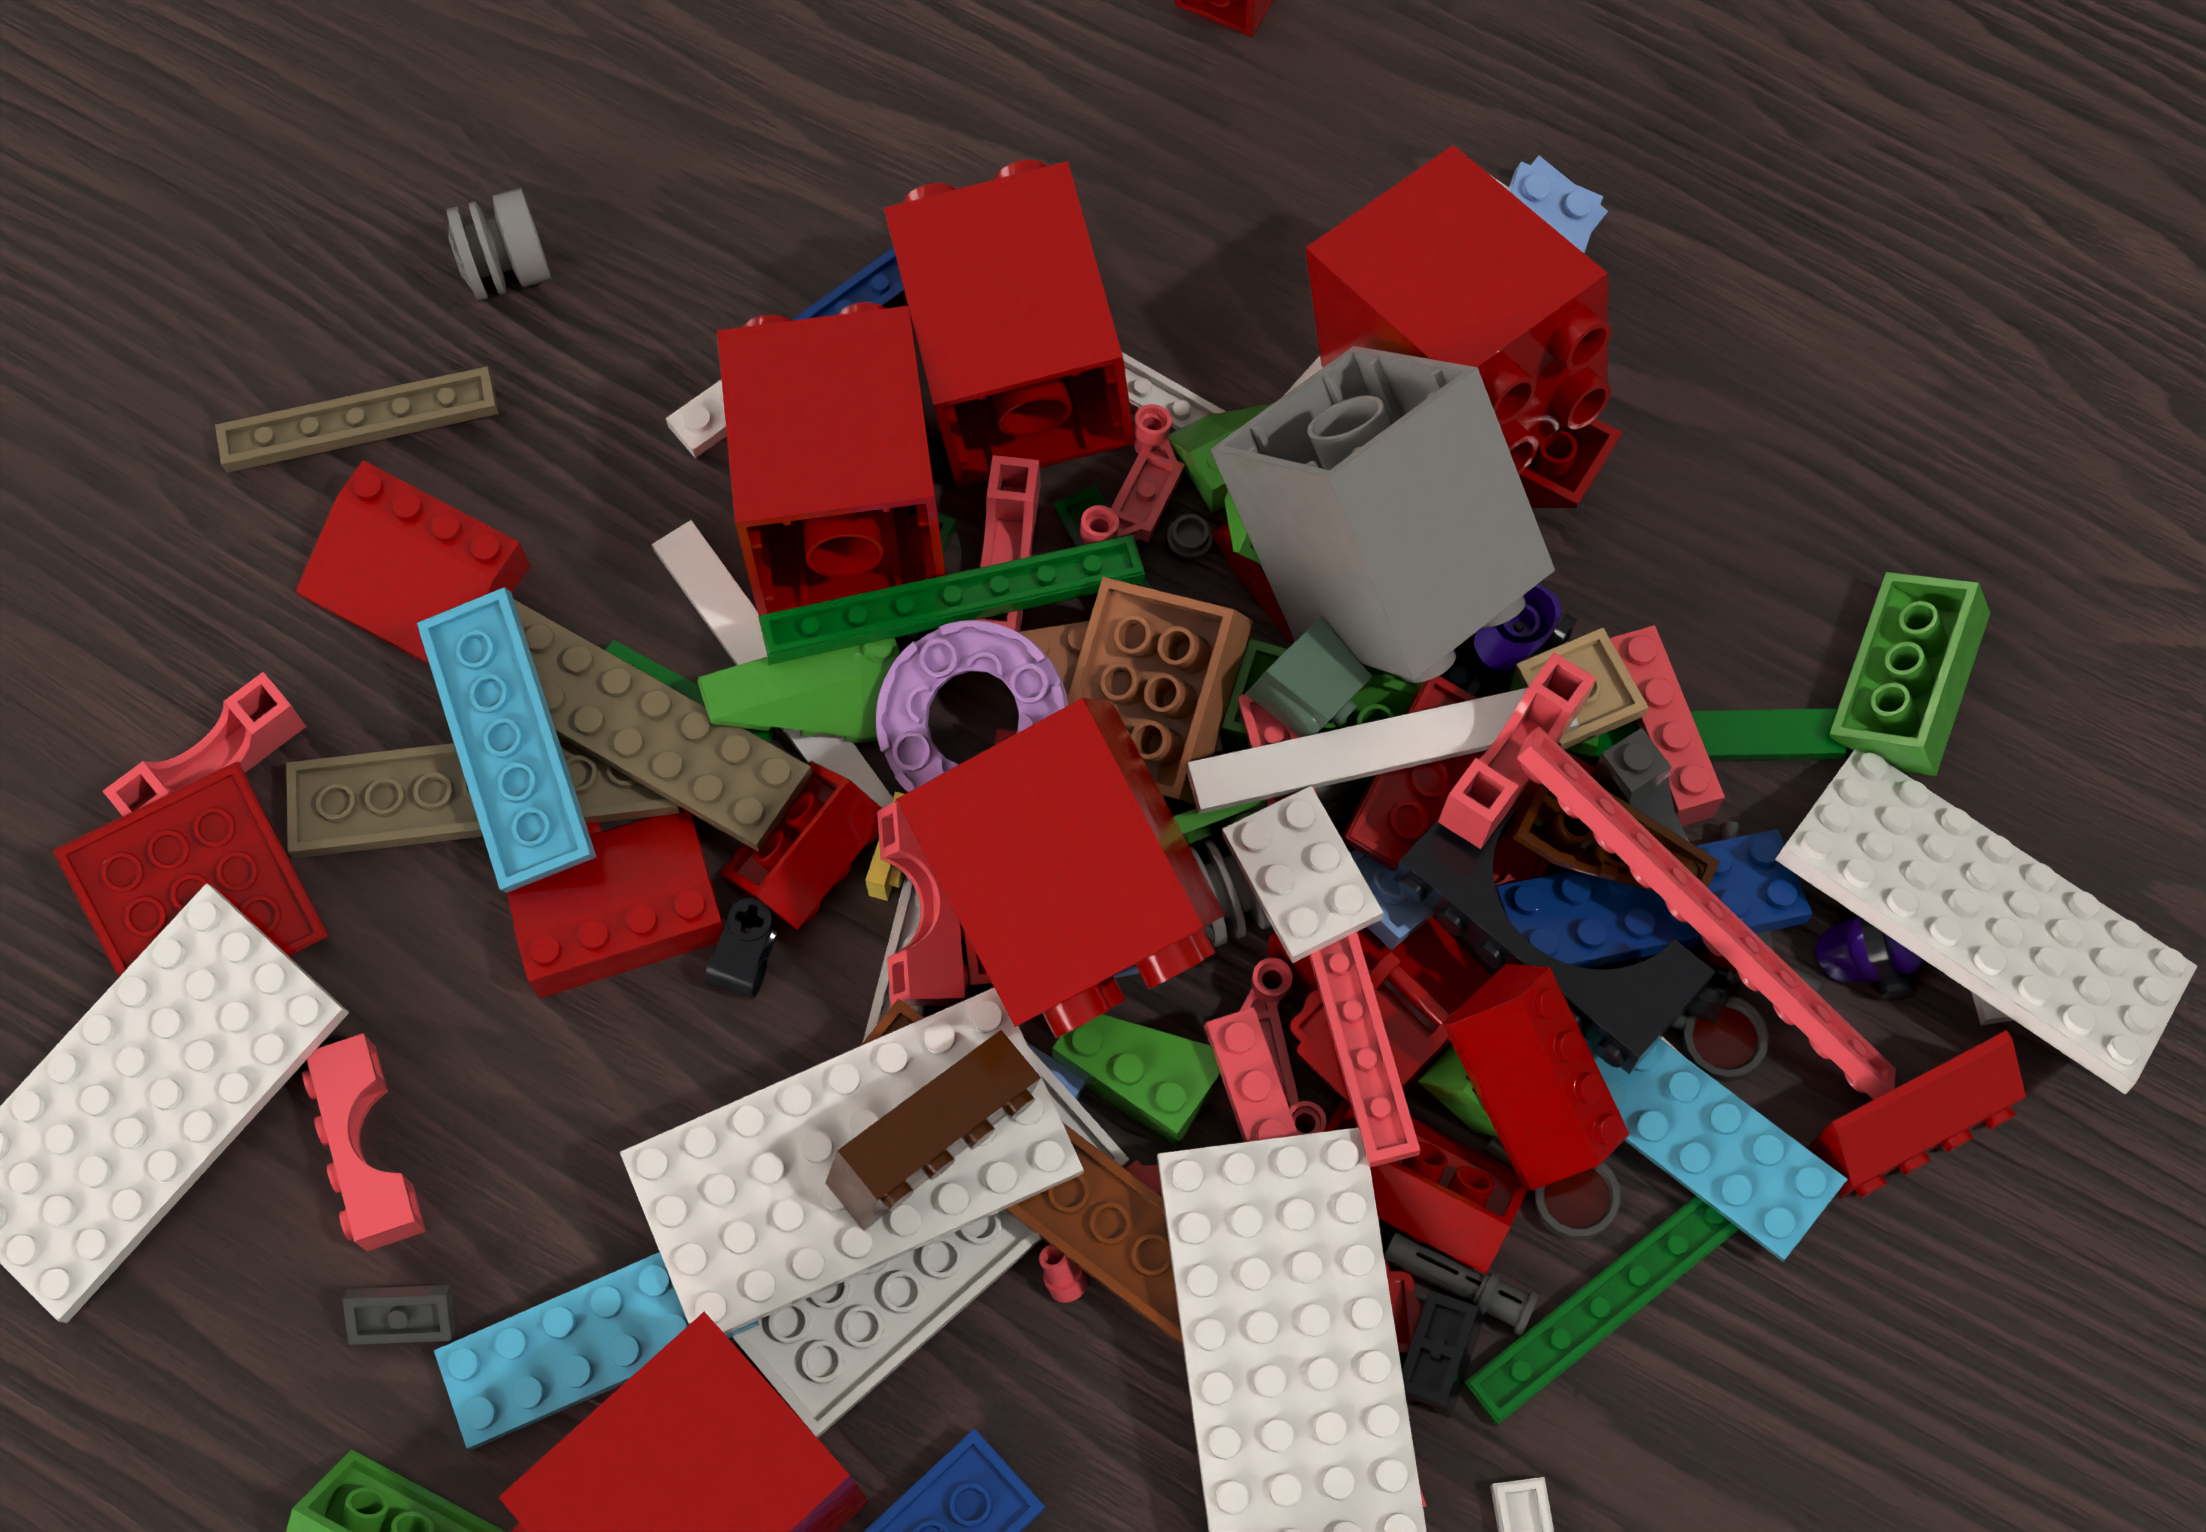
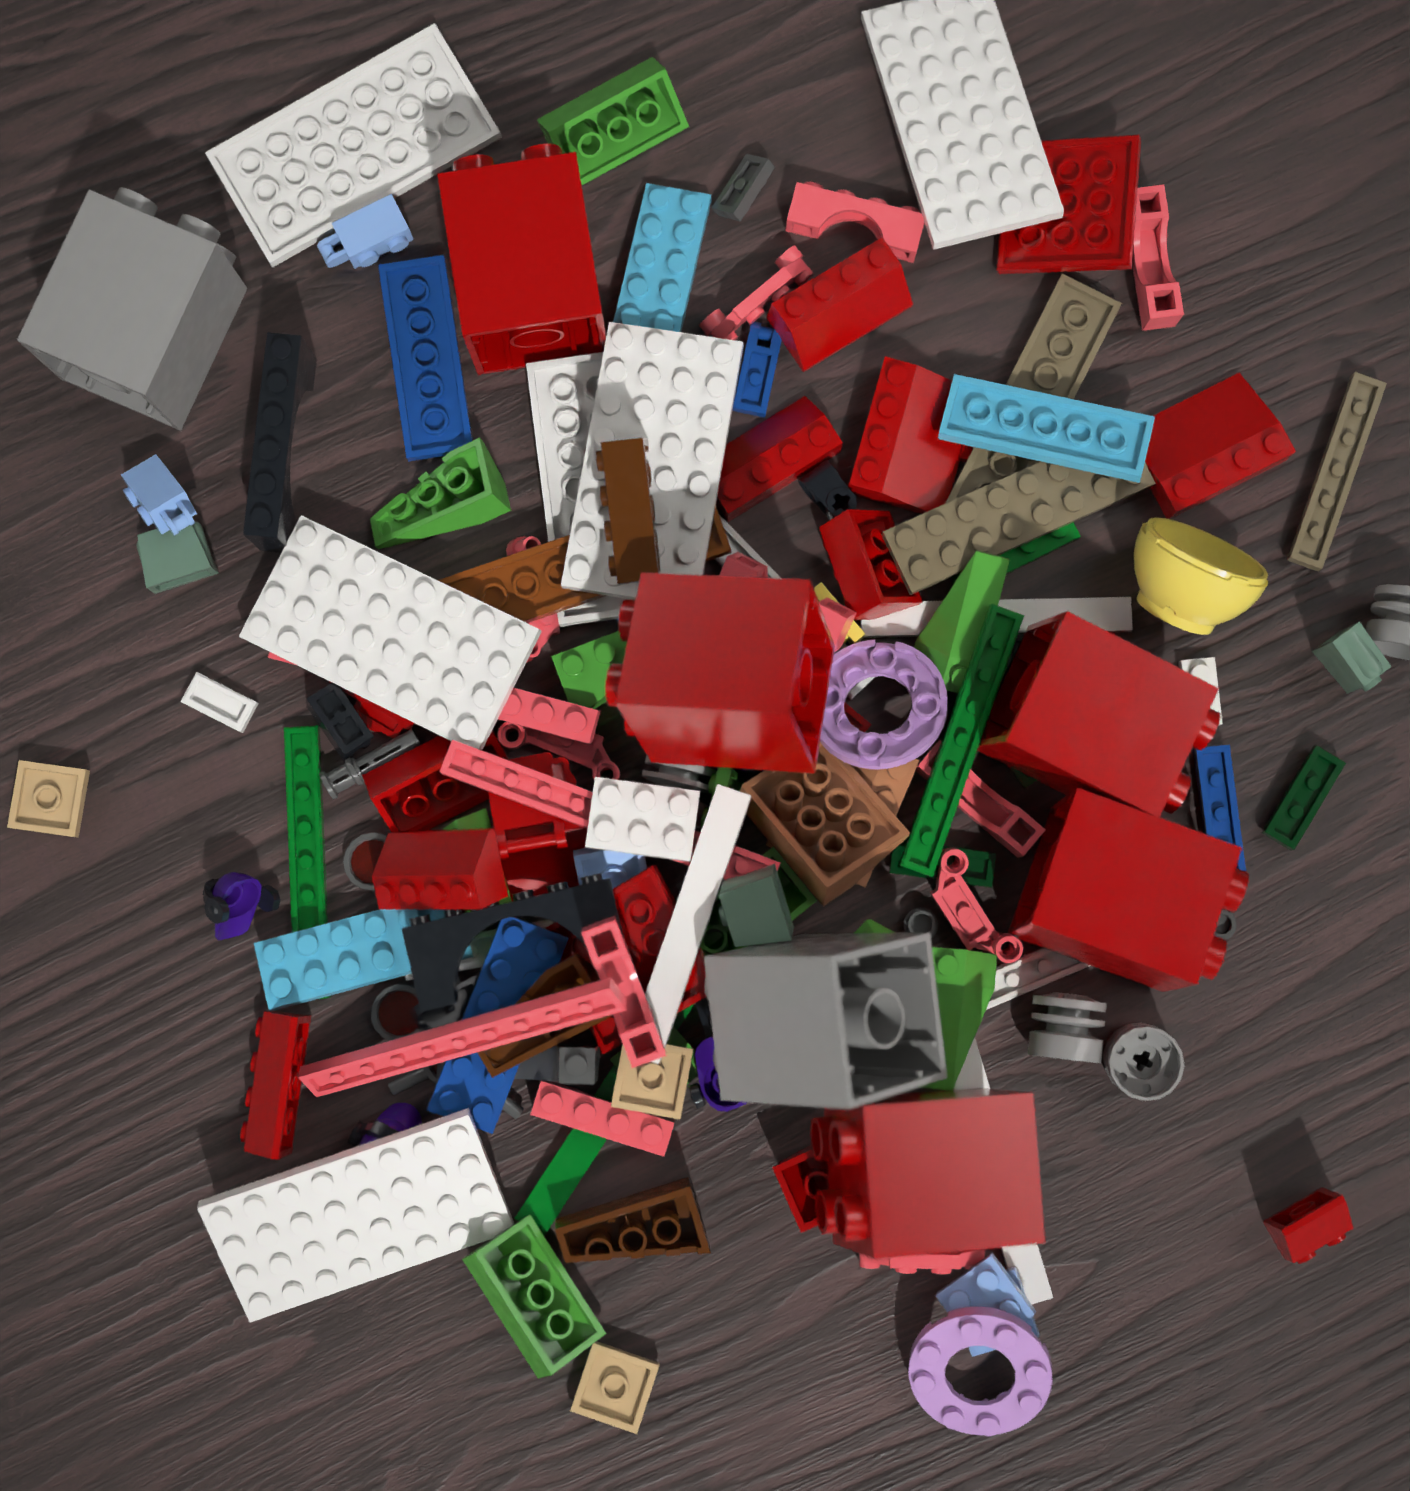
camera: 125 degrees right, 15 degrees up
(489, 1086) = (841, 304): none -> red slope
(559, 1192) = (750, 309): none -> coral plate
(575, 274) = (1353, 658): none -> sand green torso
(586, 472) = (1193, 576): none -> light yellow piece
(622, 1134) = (757, 371): none -> blue plate
(727, 1039) = (774, 456): none -> red slope
(767, 242) = (1303, 798): none -> dark green plate
(1056, 1414) = (452, 497): none -> bright green wedge
(1181, 202) = (1150, 1080): none -> light grey wheel
(1199, 312) = (1067, 1028): none -> light grey wheel
(1570, 191) = (987, 1328): none -> lavender plate
(1751, 615) = (635, 1226): none -> reddish brown wedge
(1753, 1329) = (233, 901): none -> dark purple cap
(1931, 530) = (615, 1387): none -> tan plate

